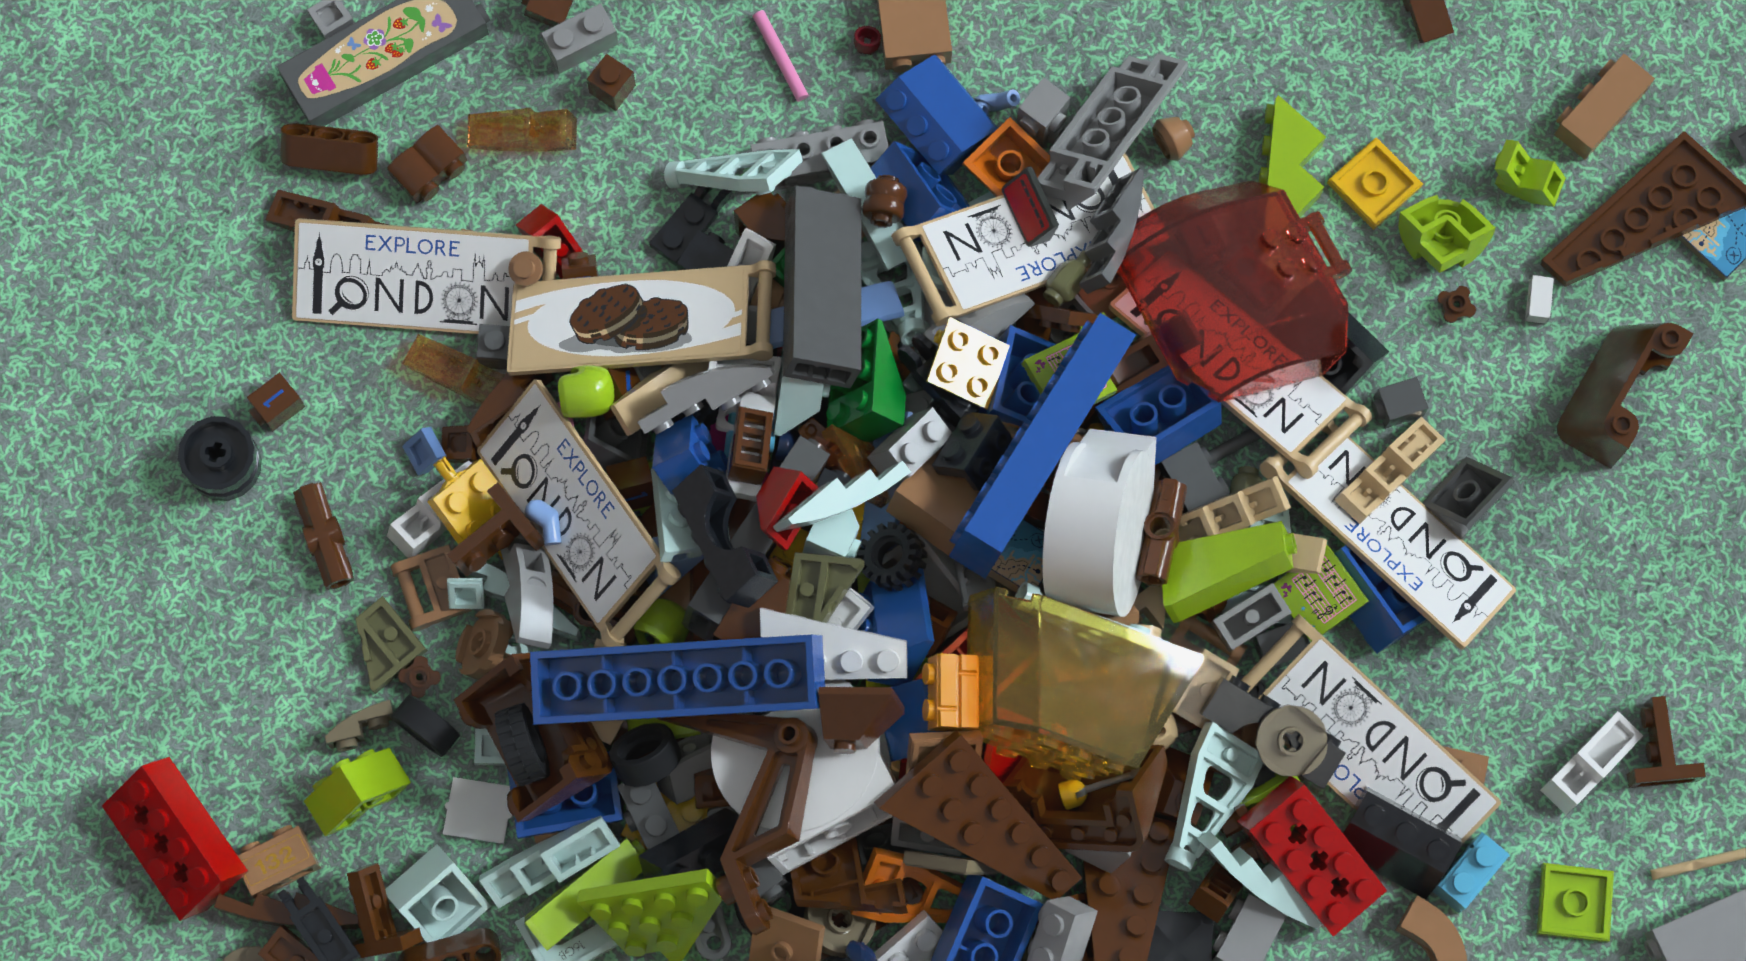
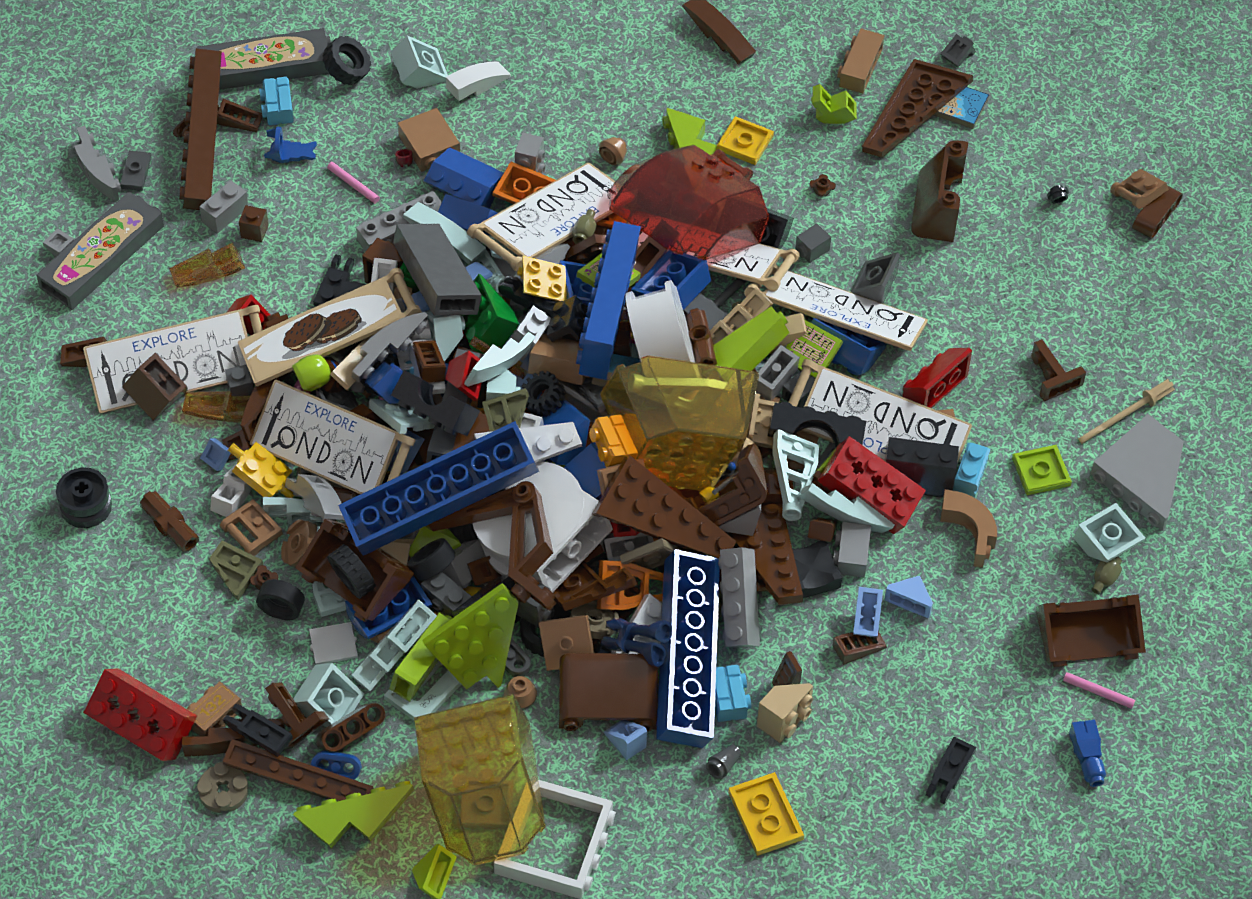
camera: 20 degrees left, 20 degrees down
(274, 402) = (108, 457): reddish brown brick -> none
(329, 148) = (87, 310): reddish brown beam -> none
(350, 731) = (231, 623): dark tan slope -> none
(355, 788) = (247, 649): lime brick -> none
(377, 314) = (154, 386): none -> reddish brown slope
(427, 164) = (154, 302): reddish brown brick -> none
(465, 593) = (276, 518): light aqua slope -> none
(495, 534) = (288, 465): reddish brown bracket -> none
(525, 268) = (243, 327): medium nougat plate -> none
(547, 518) = (313, 451): light blue arm -> none
(765, 171) = (371, 230): light aqua plate -> none
(857, 715) = (561, 464): reddish brown slope -> none
(884, 201) = (454, 220): reddish brown piece -> none
(998, 101) = (501, 162): light blue arm -> none
(1030, 208) = (545, 196): slope -> none
(1107, 126) = (571, 148): light grey slope -> none
(1115, 226) = (601, 192): dark grey slope -> none
(1291, 761) = (842, 416): dark tan plate -> none
(1390, 470) = (823, 276): tan slope -> none
(1444, 232) = (798, 148): lime brick -> none
(1483, 701) = (939, 377): none -> red slope
(1539, 299) = (870, 168): white piece -> none
(1591, 763) = (1015, 393): white slope -> none

